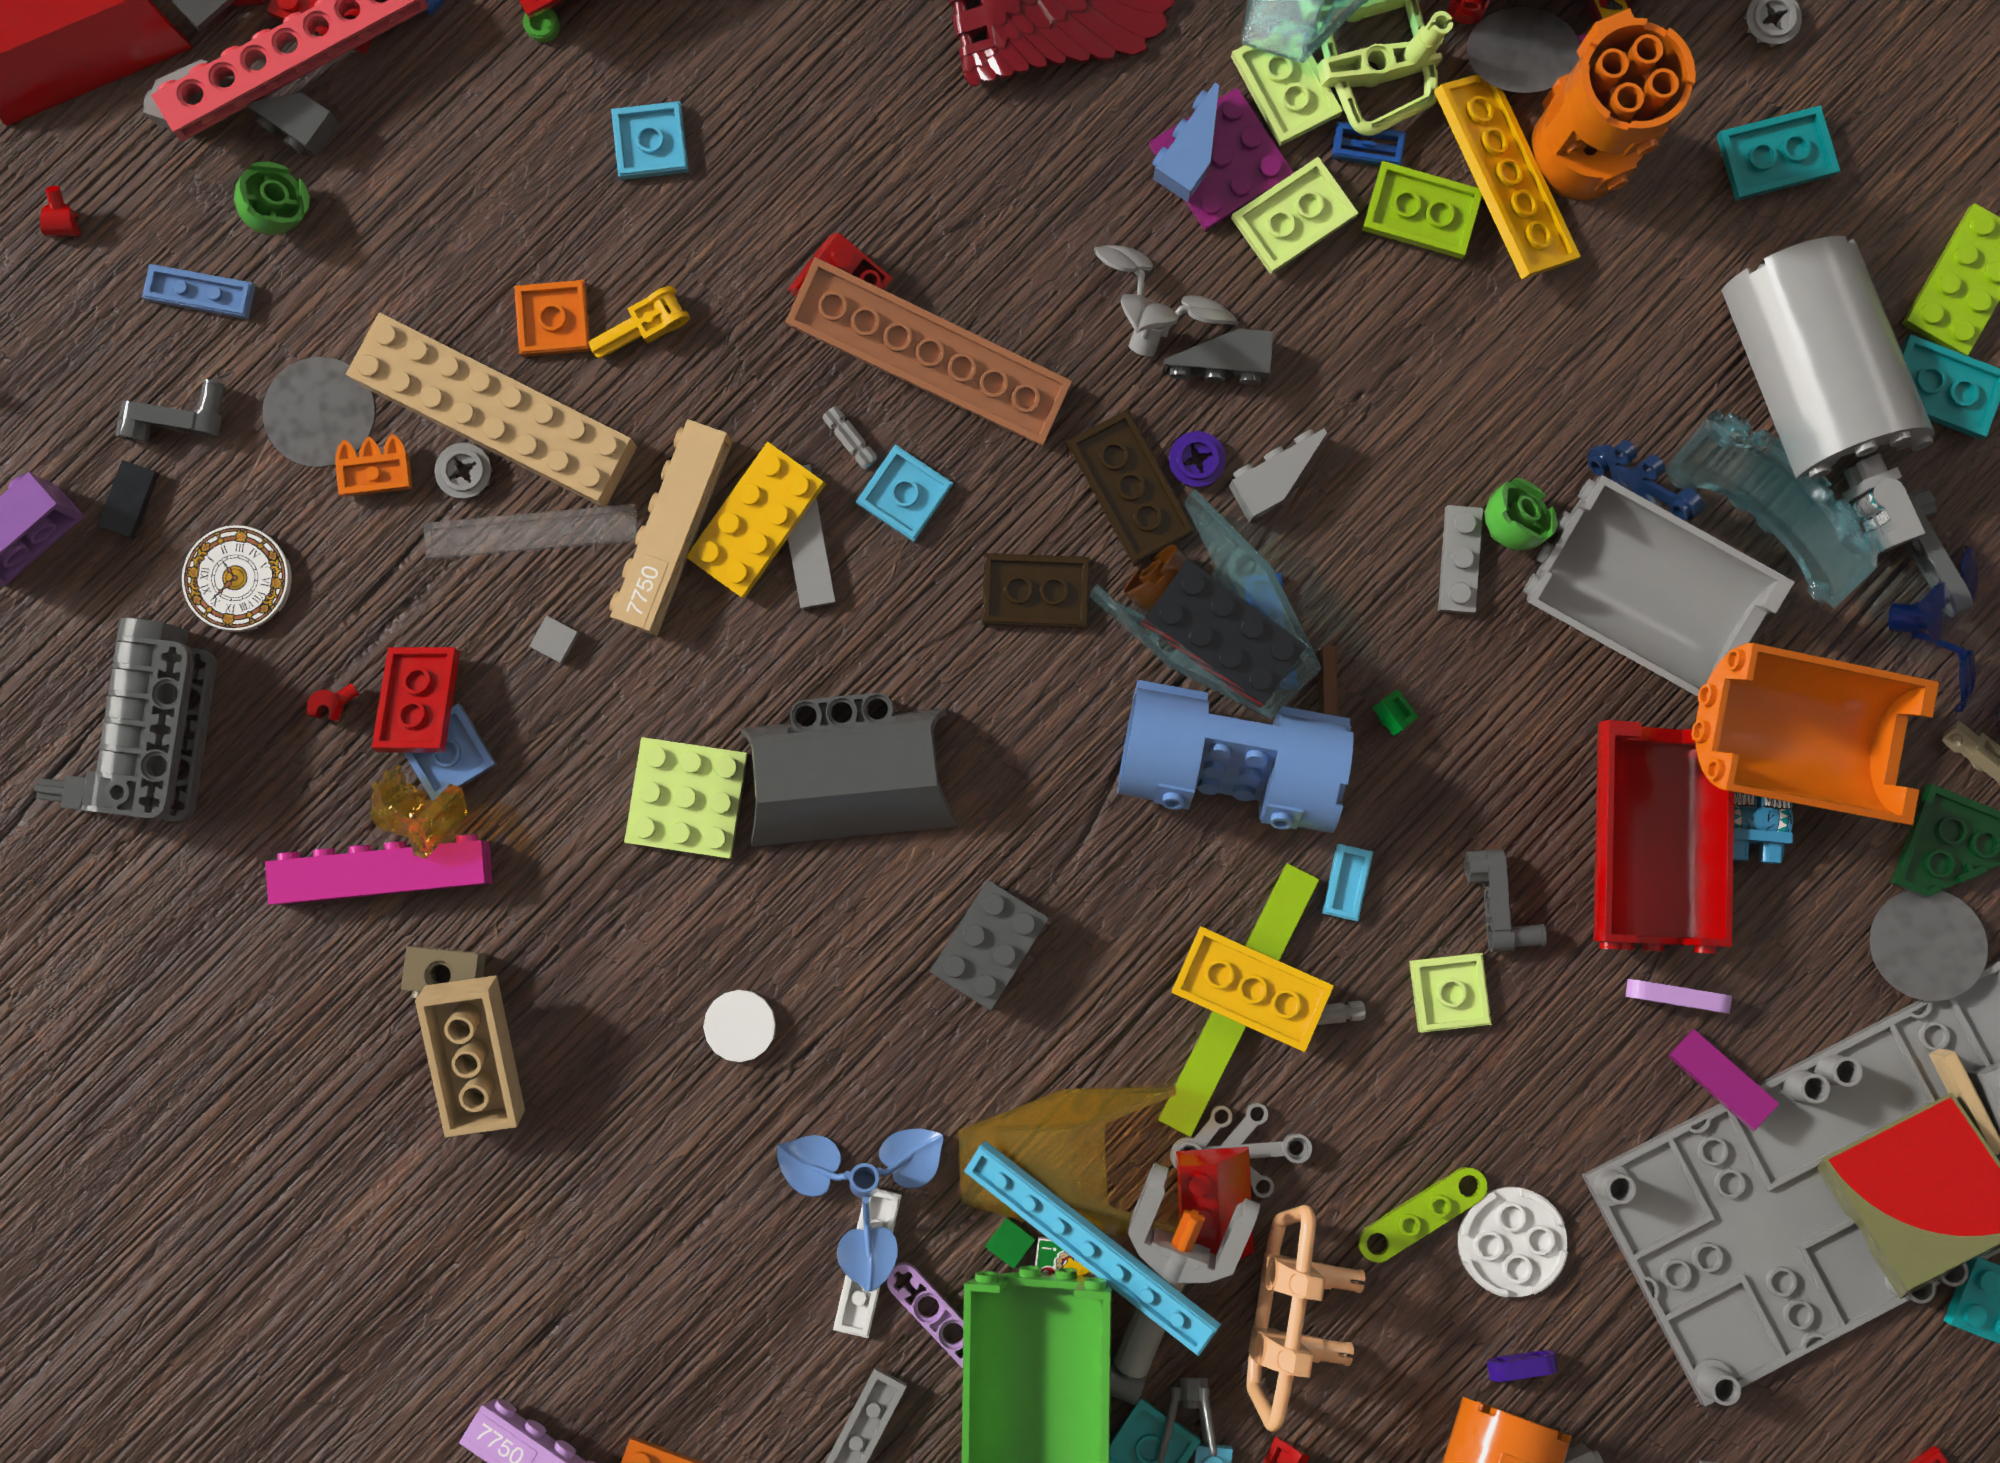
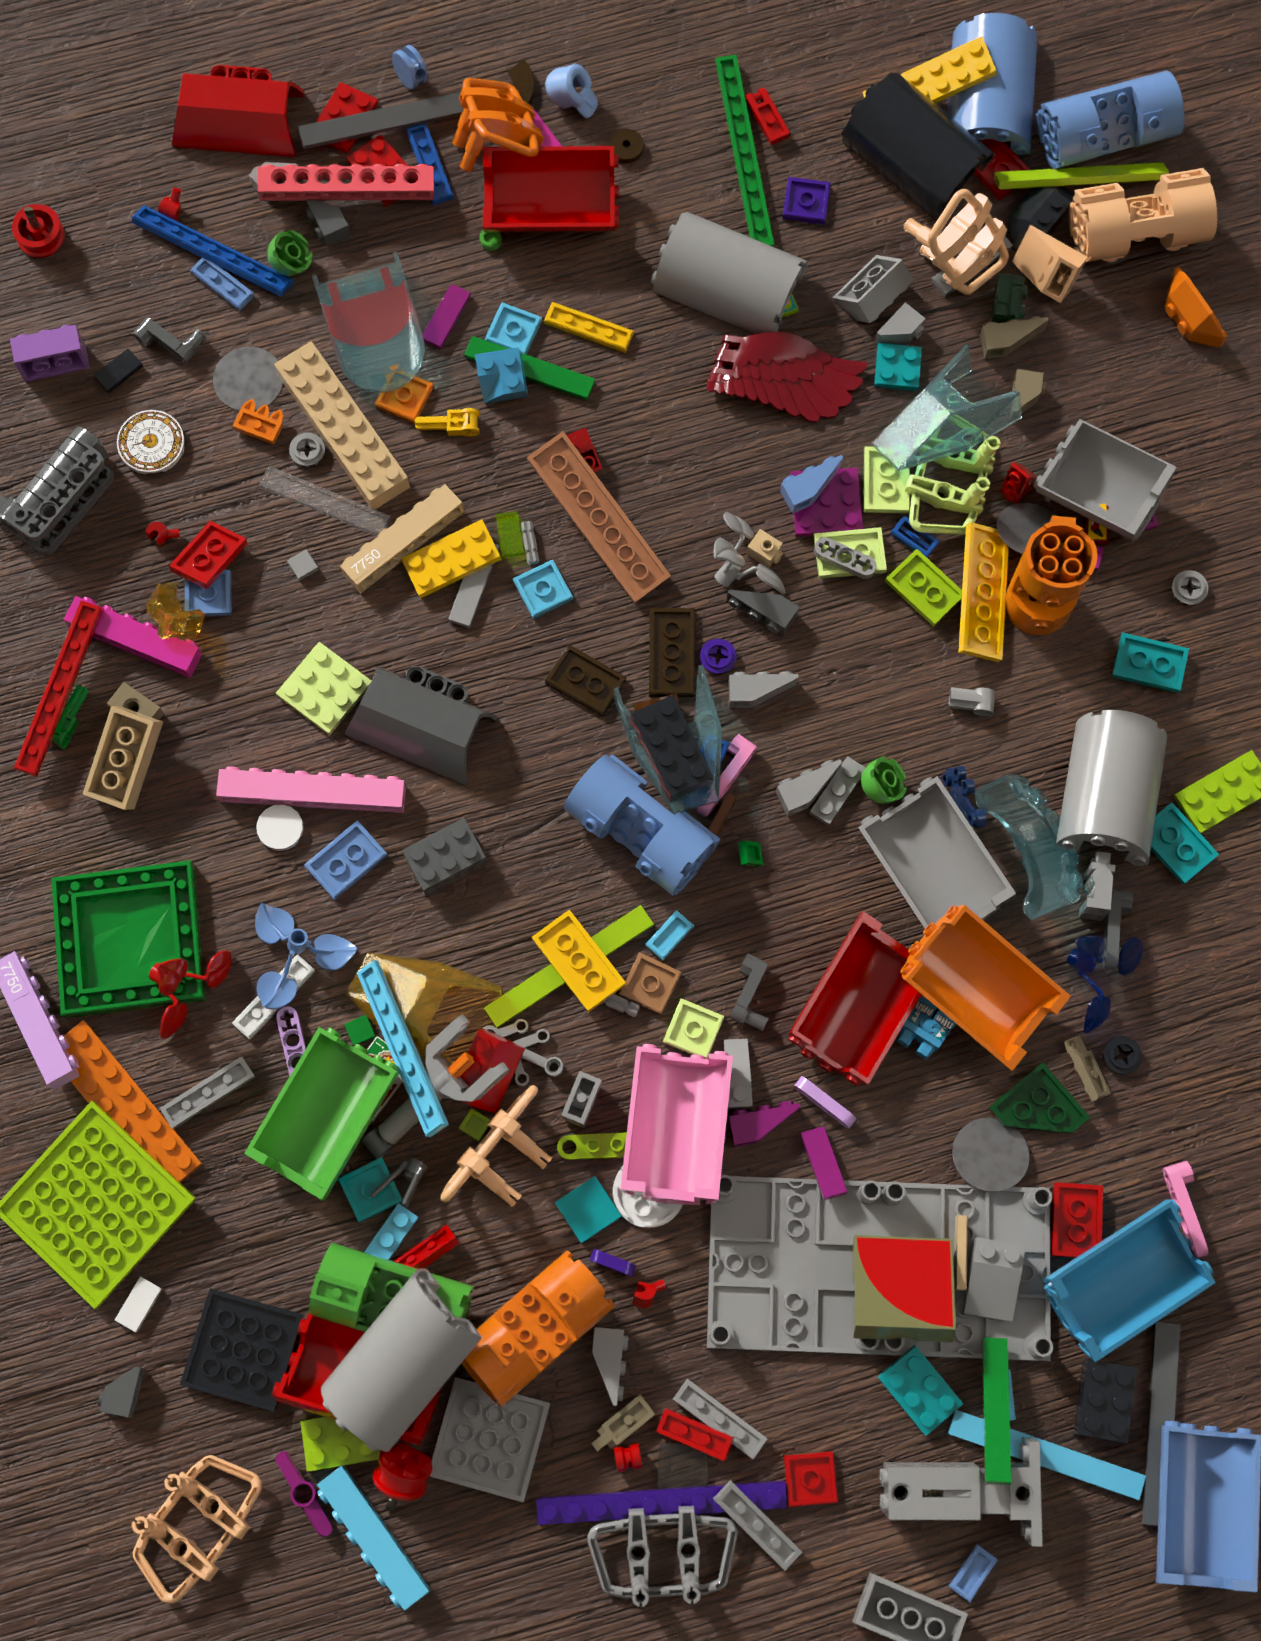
camera: 30 degrees right, 10 degrees down
(155, 251) = (212, 250): none -> blue tile
(321, 1006) = (58, 689): none -> red tile
(356, 1046) = (68, 722): none -> green connector
(453, 242) = (373, 327): none -> clear light blue windscreen
(544, 171) = (446, 316): none -> magenta tile
(624, 1296) = (117, 929): none -> green tile
(675, 217) = (501, 375): none -> dark azure slope
(704, 185) = (540, 371): none -> green tile
(724, 1331) = (168, 977): none -> red plant
(752, 953) = (311, 790): none -> bright pink brick
(753, 80) = (588, 327): none -> yellow tile
(814, 440) = (509, 534): none -> clear neon green tile
(855, 1020) = (346, 860): none -> medium blue tile
(1178, 272) = (765, 549): none -> tan brick
(1238, 1286) = (475, 1125): none -> lime tile
(1307, 575) = (743, 752): none -> bright pink beam
(1321, 235) = (848, 567): none -> light grey beam
(1359, 962) = (650, 983): none -> medium nougat tile
(1362, 1174) = (581, 1099): none -> light grey brick
(1419, 585) = (802, 791): none -> light grey slope
(1448, 1311) = (588, 1209): none -> teal tile
(1517, 1142) = (676, 1126): none -> bright pink cylinder
(1545, 1023) = (740, 1084): none -> light grey slope
(1580, 332) = (979, 700): none -> light grey piece
(1589, 1376) = (646, 1292): none -> red piece
(1609, 1076) = (754, 1126): none -> magenta slope

